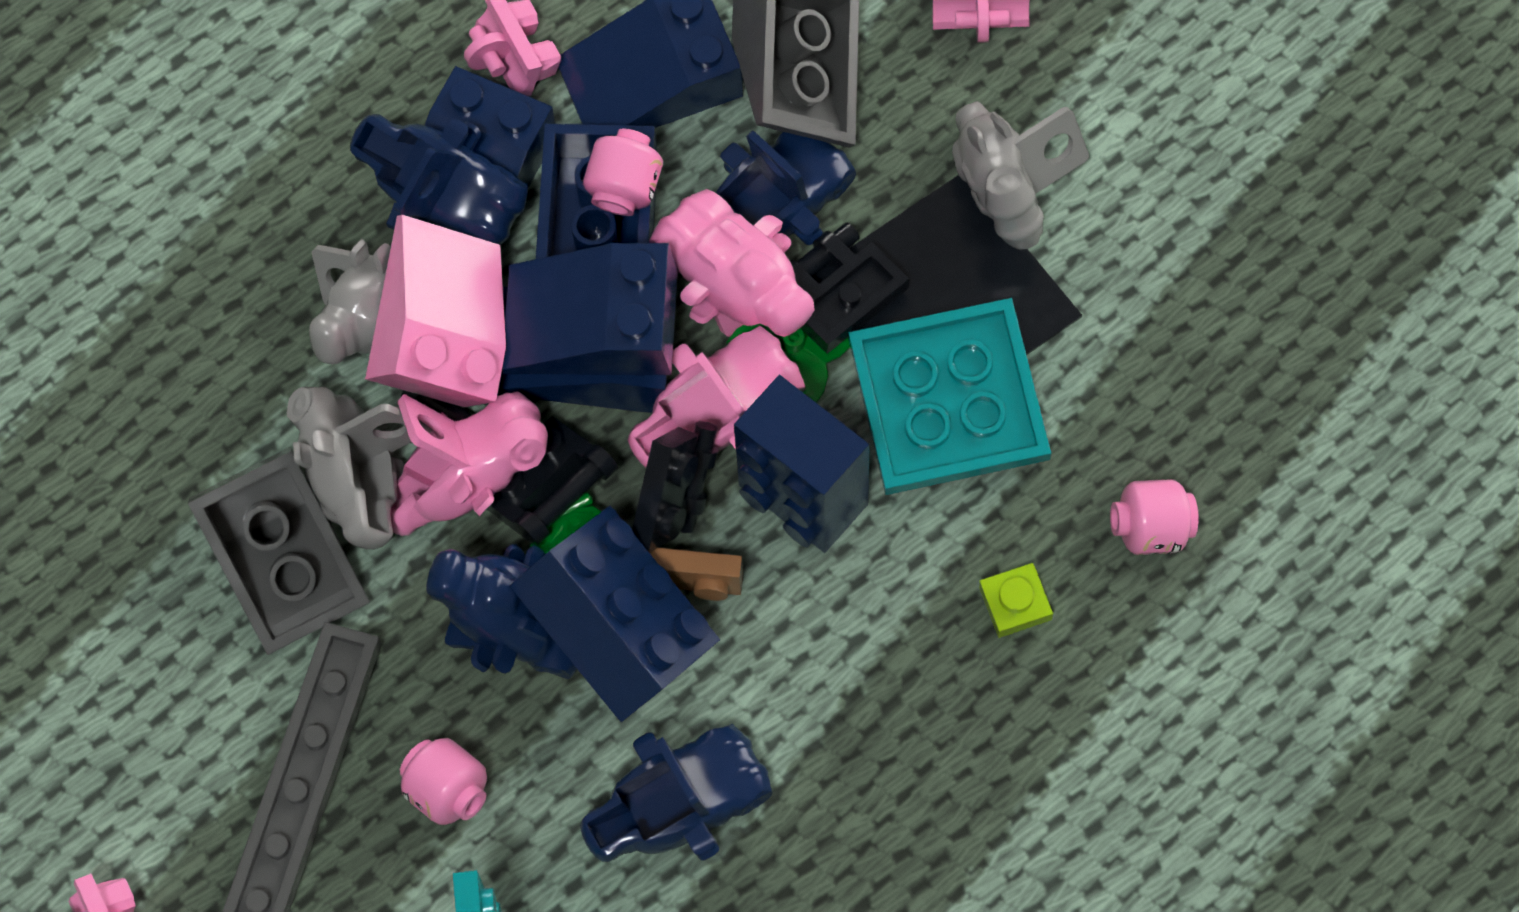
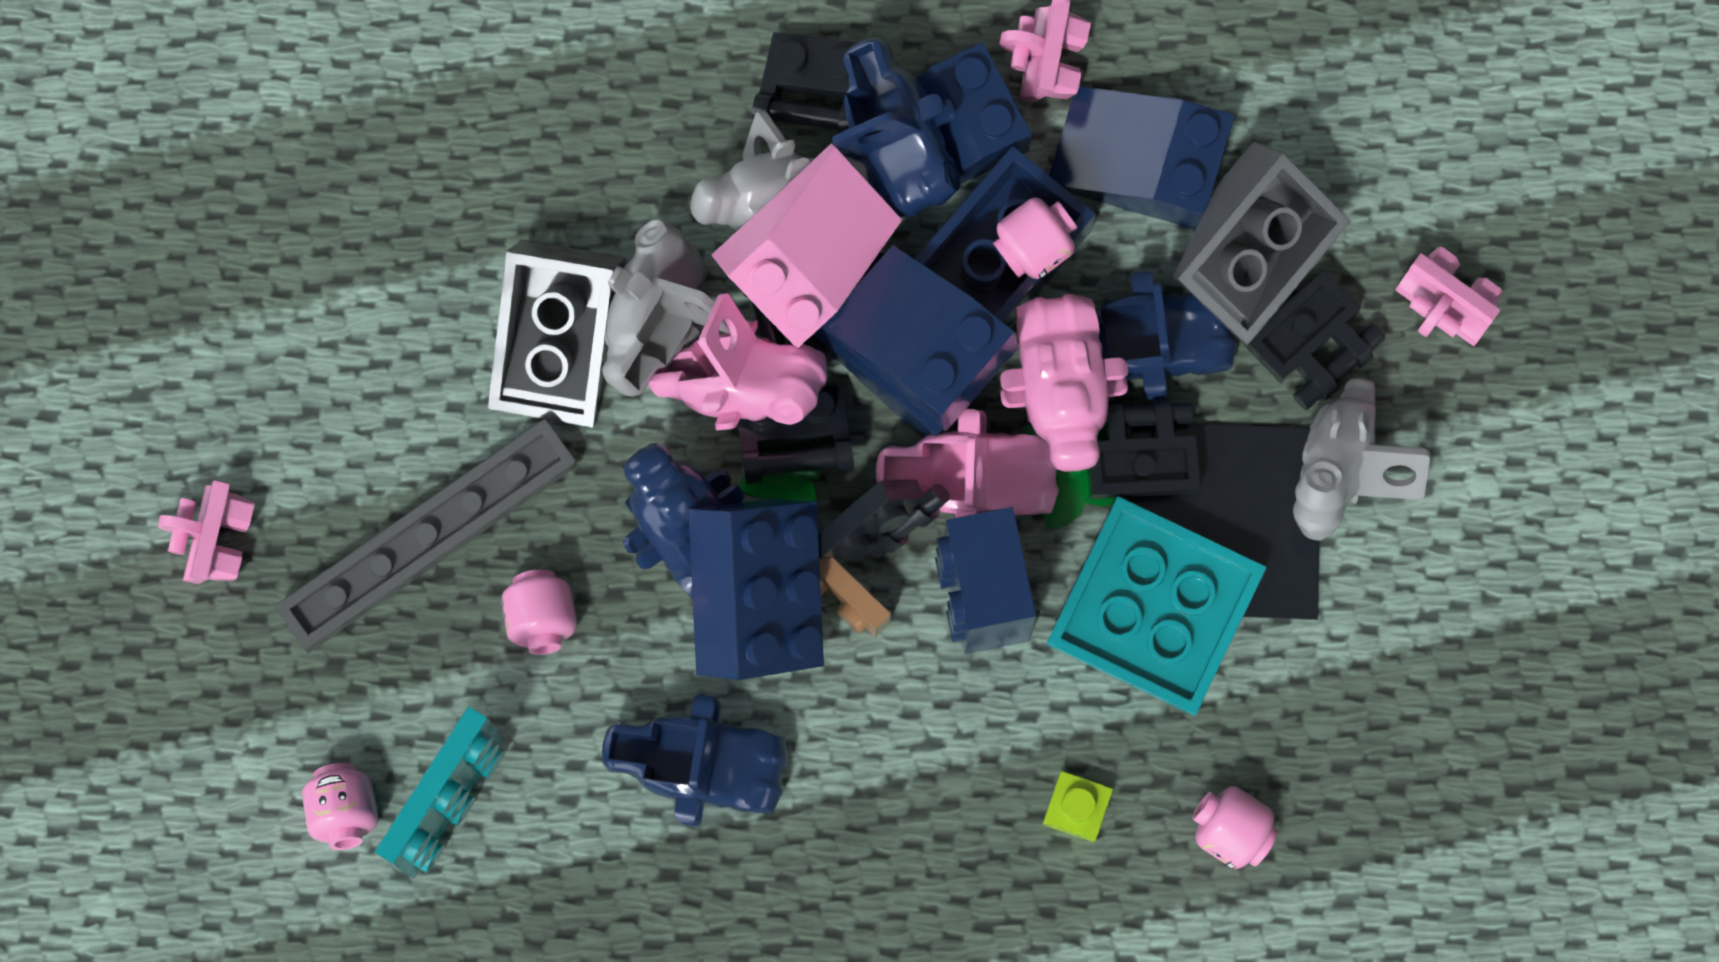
camera: 35 degrees right, 10 degrees up
(329, 193) = (804, 67): none -> black plate
(886, 106) = (1303, 328): none -> black plate

